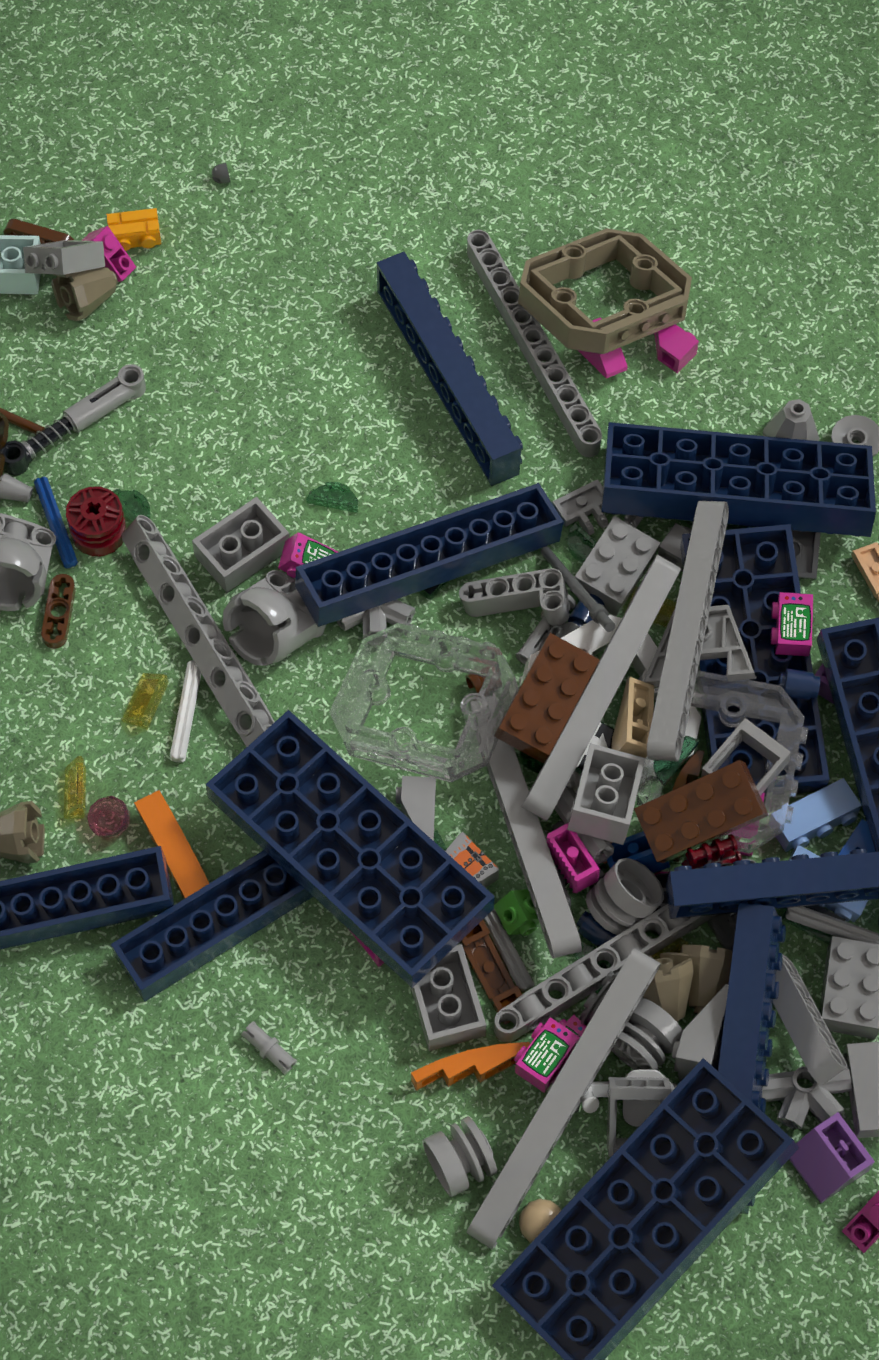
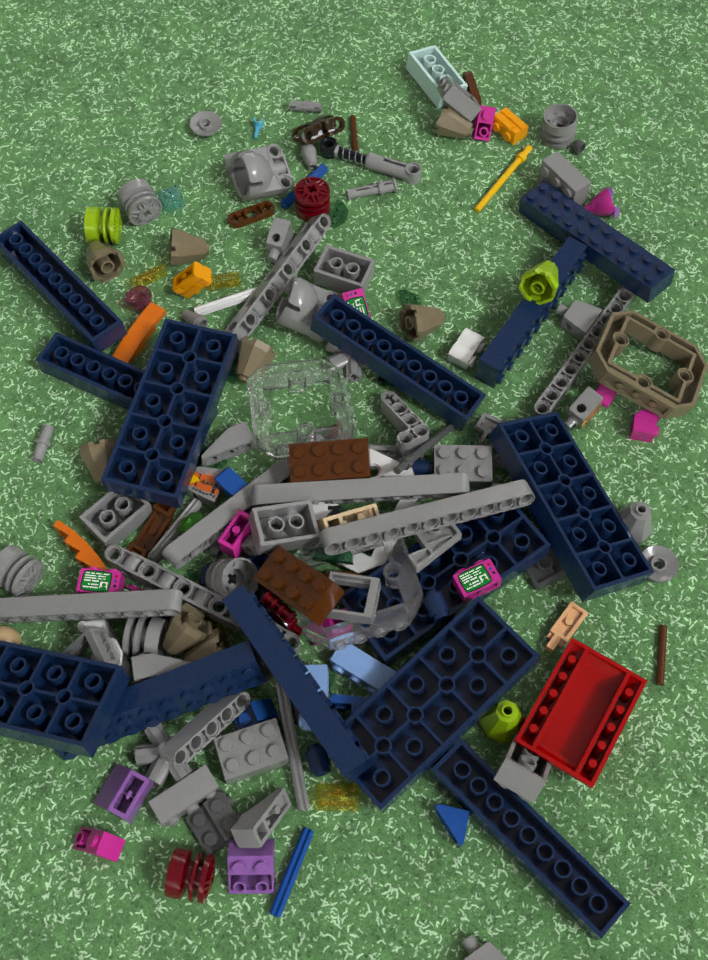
camera: 60 degrees right, 0 degrees up
(64, 718) = (186, 247): none -> dark tan cone
(125, 435) = (379, 188): none -> light grey pin
(134, 733) = (192, 280): none -> light orange brick
(136, 595) = (278, 238): none -> light grey torso
(182, 174) = (559, 126): none -> light grey wheel
(191, 765) = (194, 318): none -> light grey cone
(193, 248) = (520, 158): none -> yellow bar
(276, 221) = (564, 177): none -> light grey brick
(314, 711) = (251, 357): none -> dark tan cone
(335, 200) = (603, 204): none -> dark pink hat
(352, 980) = (97, 457): none -> dark tan cone
(376, 500) = (420, 320): none -> dark tan cone
(421, 230) = (606, 247): none -> dark blue brick
(436, 328) = (540, 283): none -> lime cone
(448, 470) = (466, 348): none -> white brick
(486, 325) = (578, 317): none -> light grey torso
(490, 836) = (229, 482): none -> blue slope
(618, 392) = (583, 409): none -> light grey torso
(808, 959) = (258, 712): none -> blue slope

